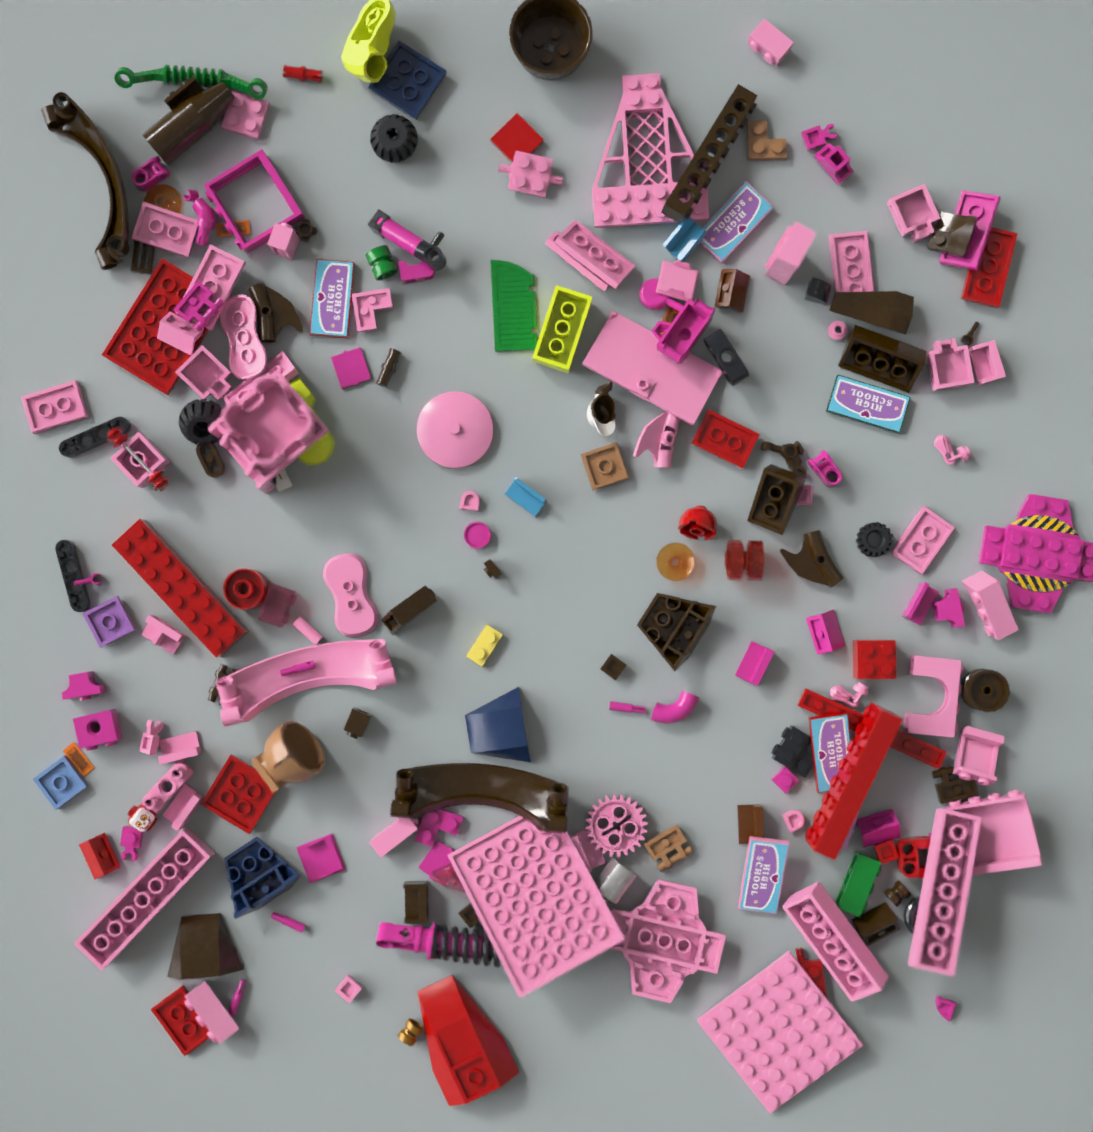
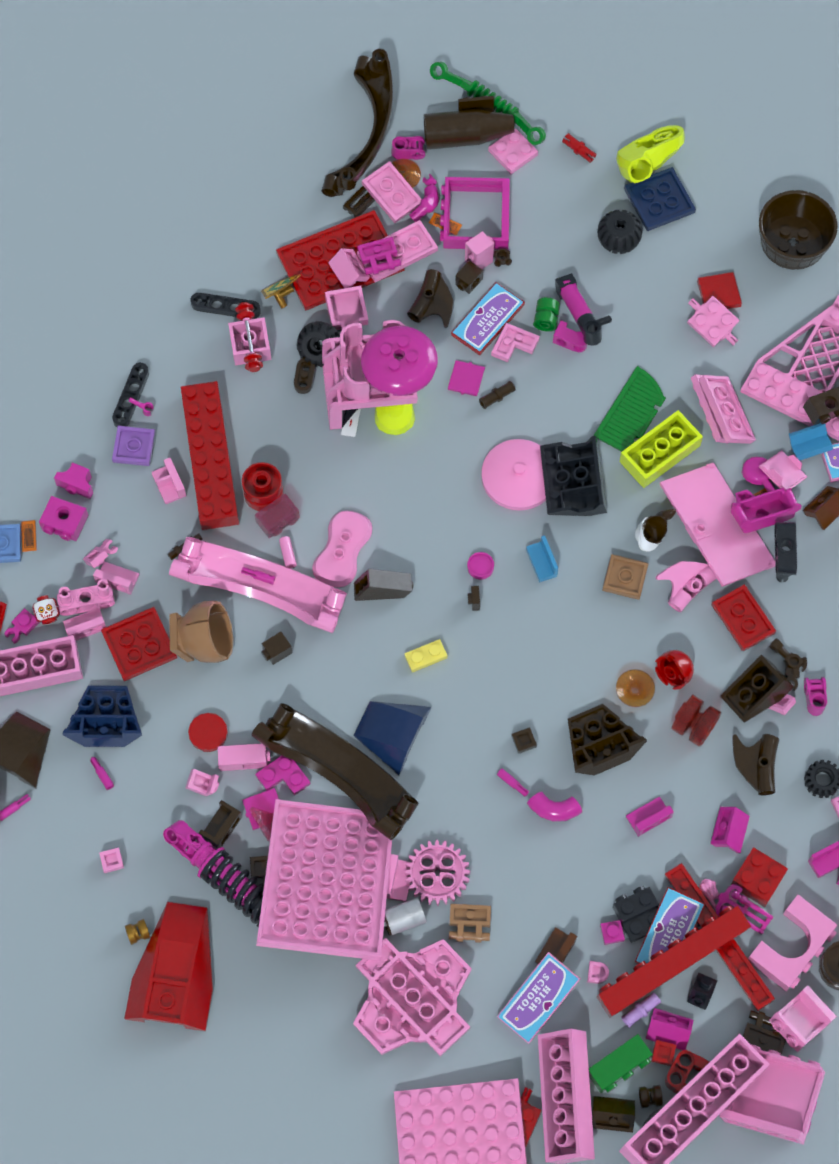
camera: 30 degrees right, 20 degrees down
(55, 407) = (210, 266): bright pink tile -> none
(132, 392) = (280, 289): none -> pearl gold shield
(246, 353) = (398, 294): bright pink plate -> none
(289, 270) = (468, 277): none -> dark brown brick
(310, 423) = (403, 375): none -> dark pink brick
(321, 858) = (166, 740): dark pink piece -> none
(350, 830) = (208, 732): none -> red tile
(376, 877) = (202, 782): none -> bright pink bracket
(470, 501) = (492, 536): bright pink tile -> none
(504, 405) = (573, 478): none -> black piece
(858, 696) = (724, 898): none -> dark pink piece
(886, 782) = (702, 991): none -> black bracket

